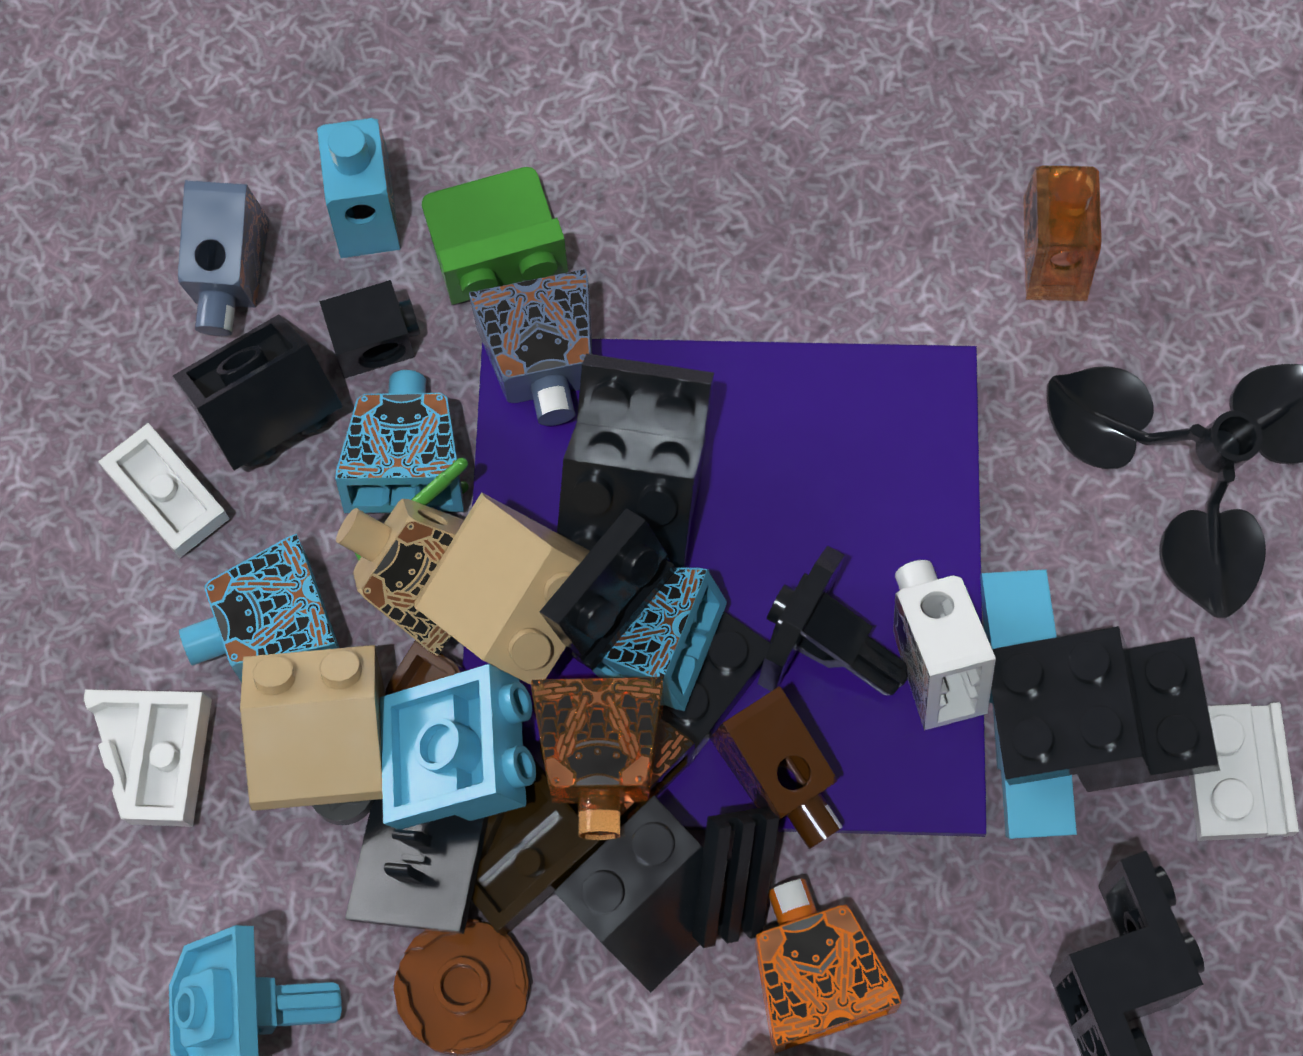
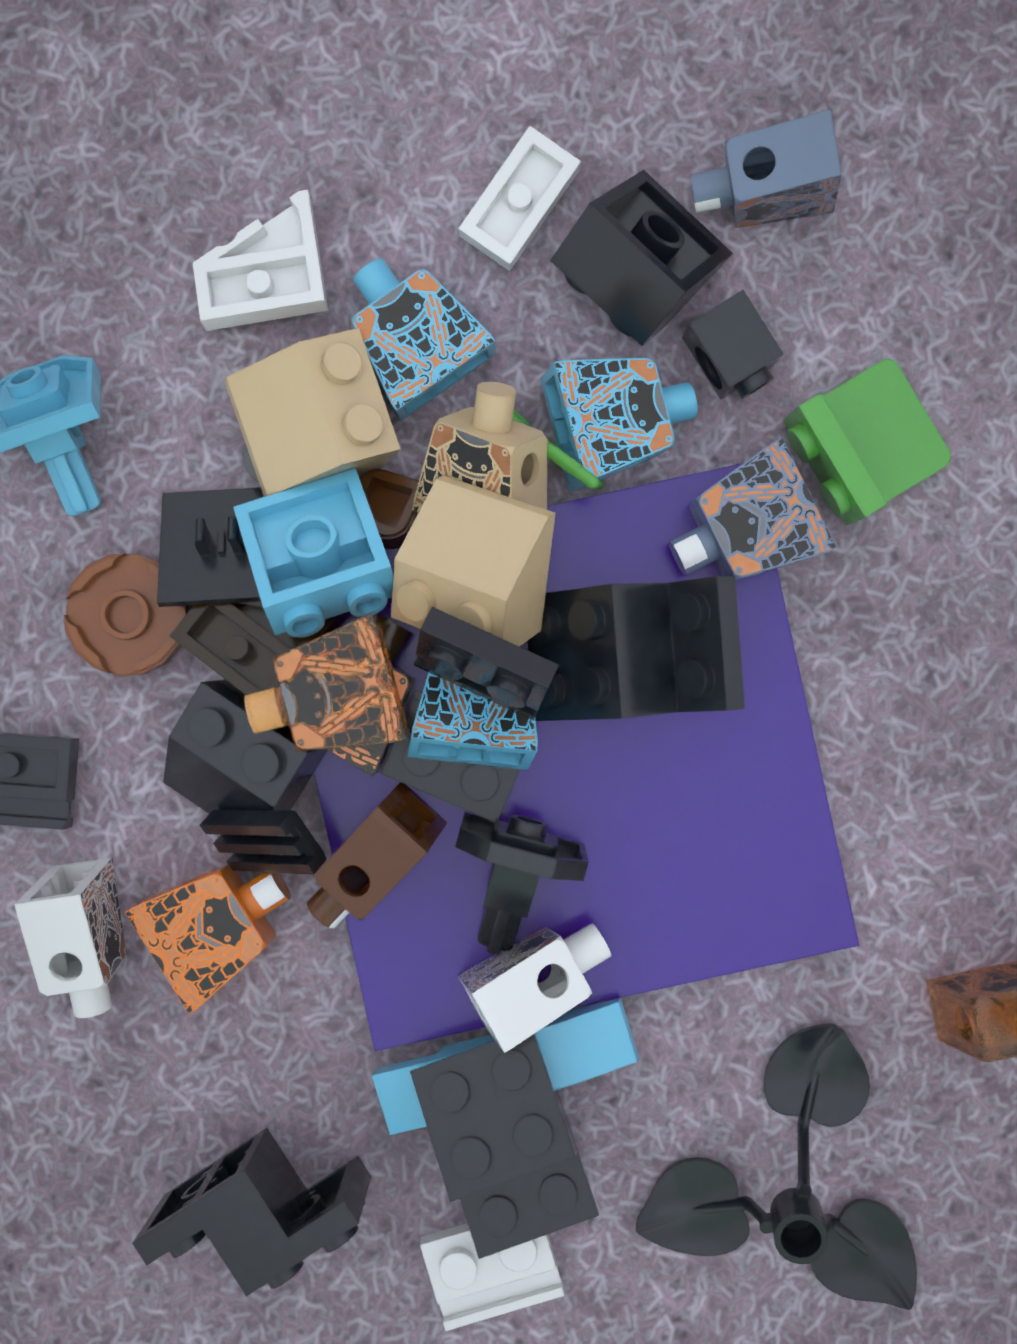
camera: 70 degrees right, 20 degrees up
(358, 174) = (887, 289): medium azure torso -> none

